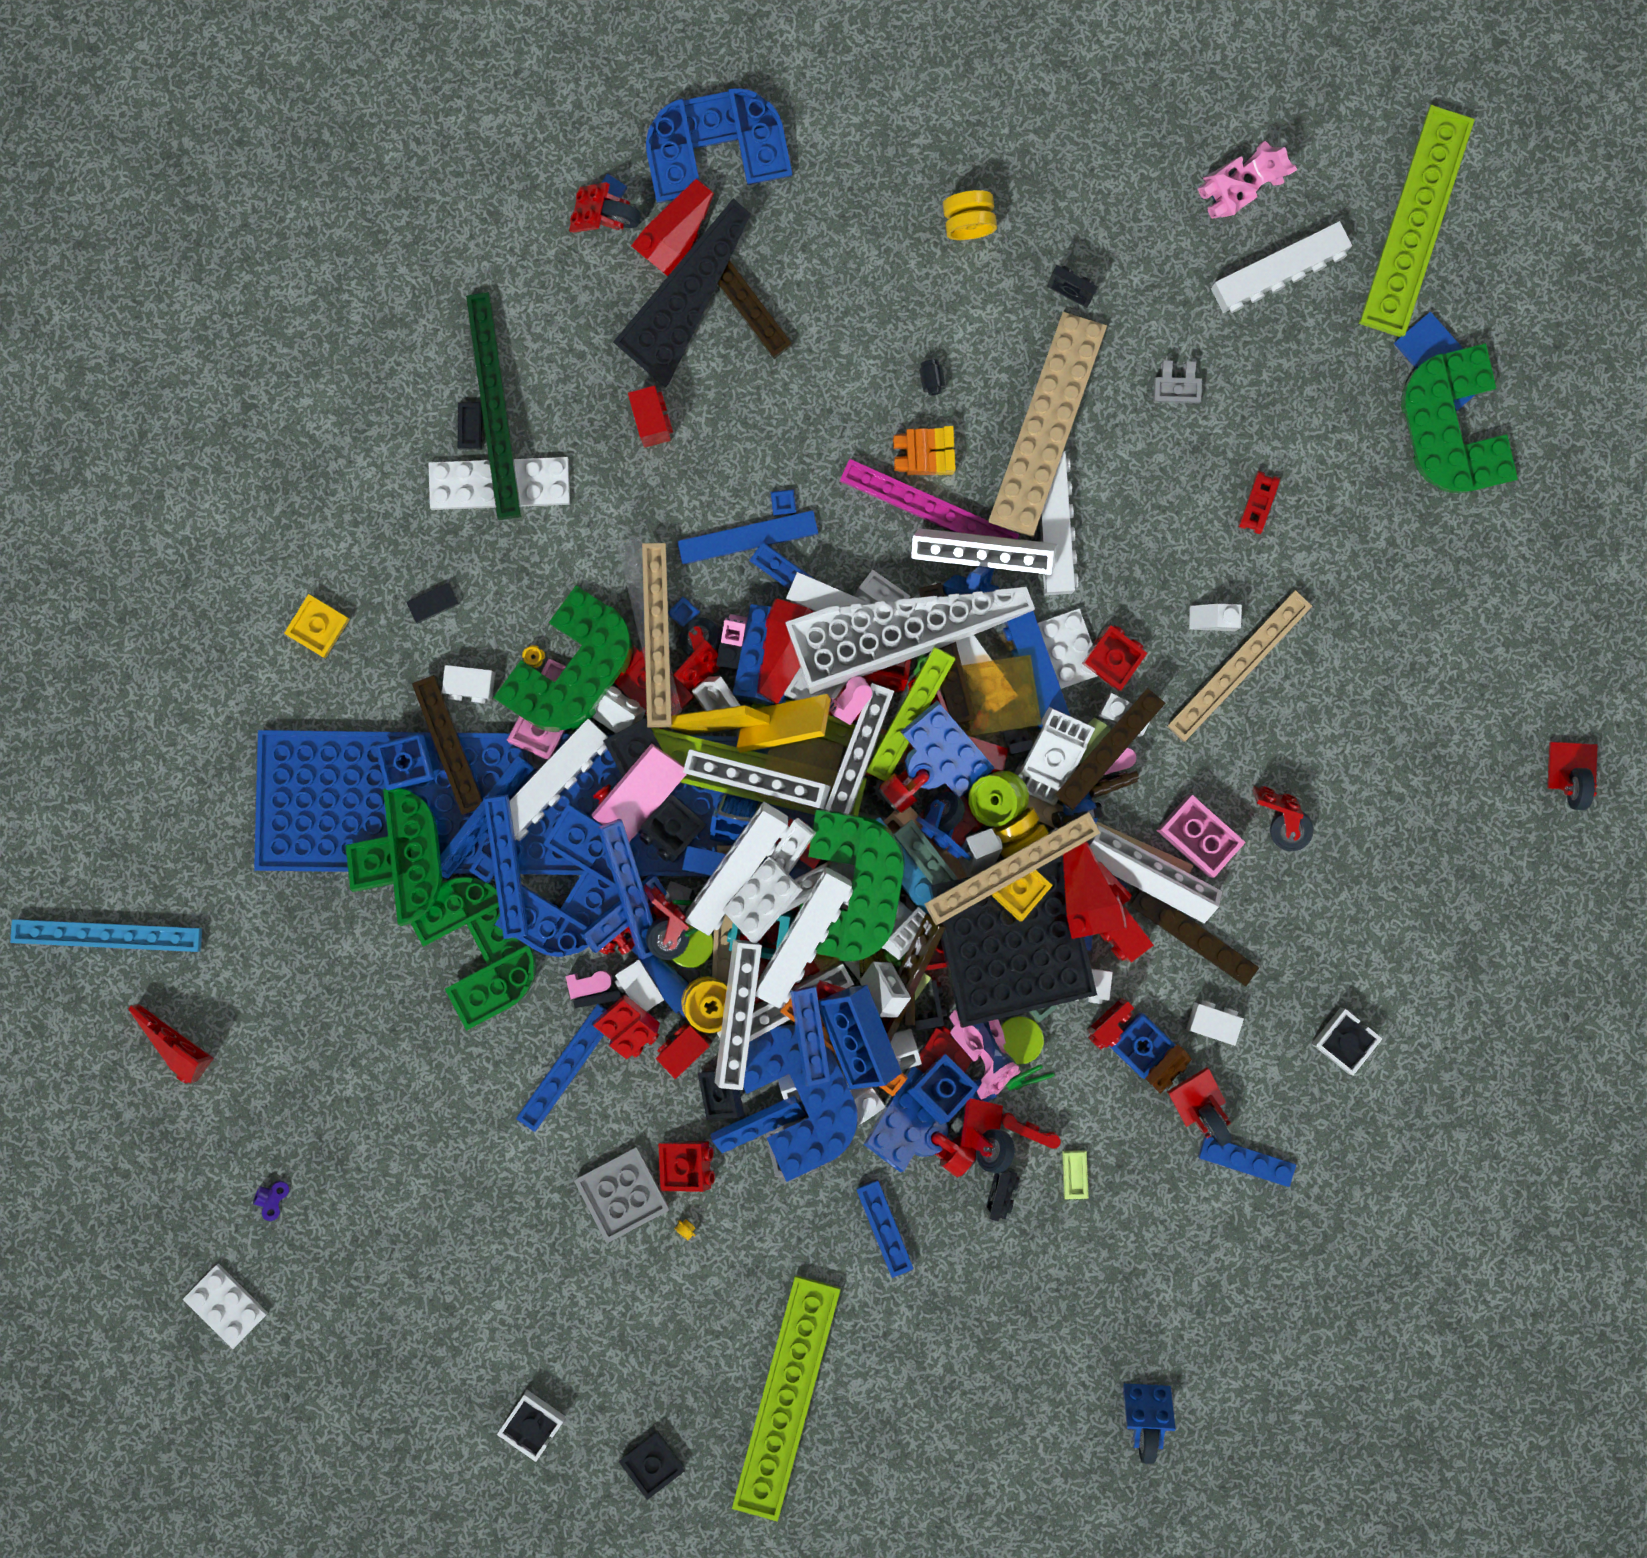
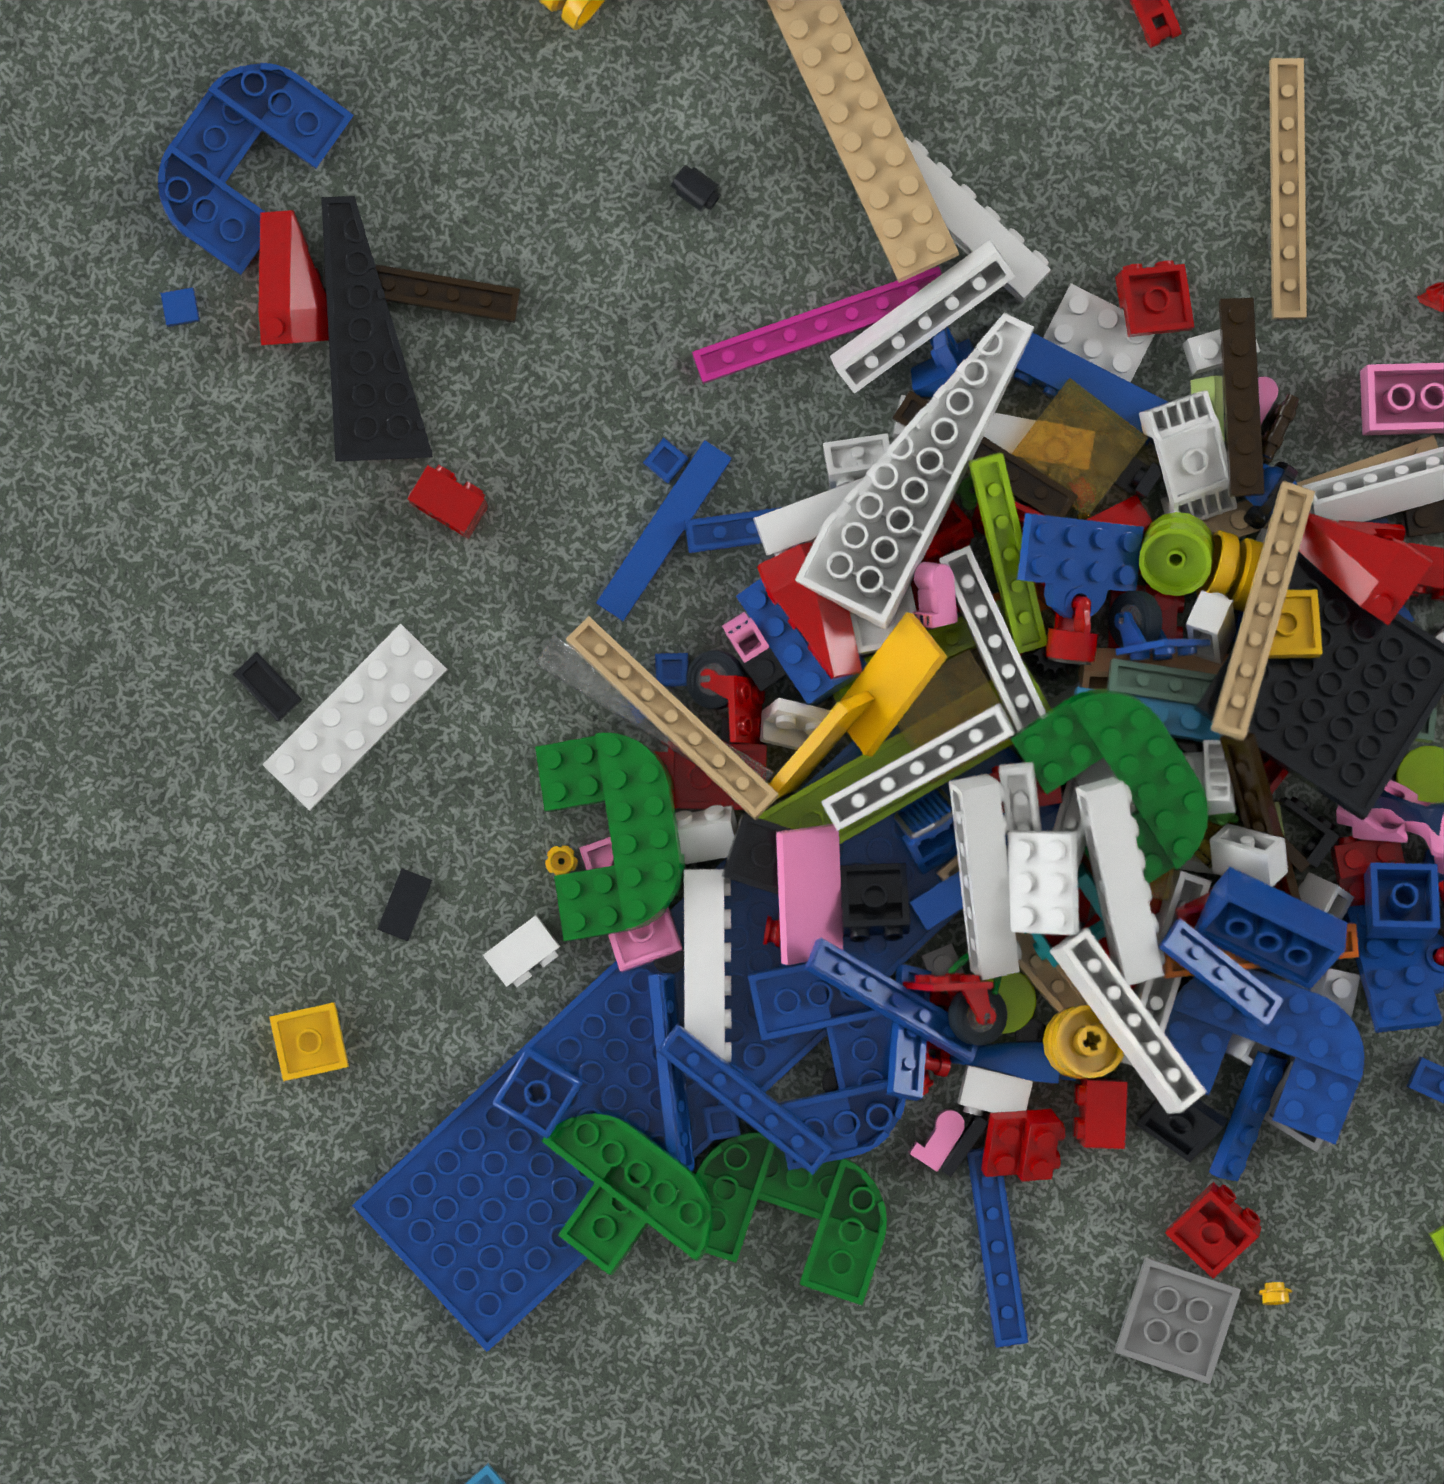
camera: 50 degrees left, 0 degrees up
(448, 744) = (564, 1032): dark brown plate -> none
(493, 406) = (276, 642): dark green plate -> none
(598, 207) = (186, 347): red plate -> none
(926, 451) = (760, 282): orange hips -> none
(1215, 617) = (1217, 162): white slope -> none

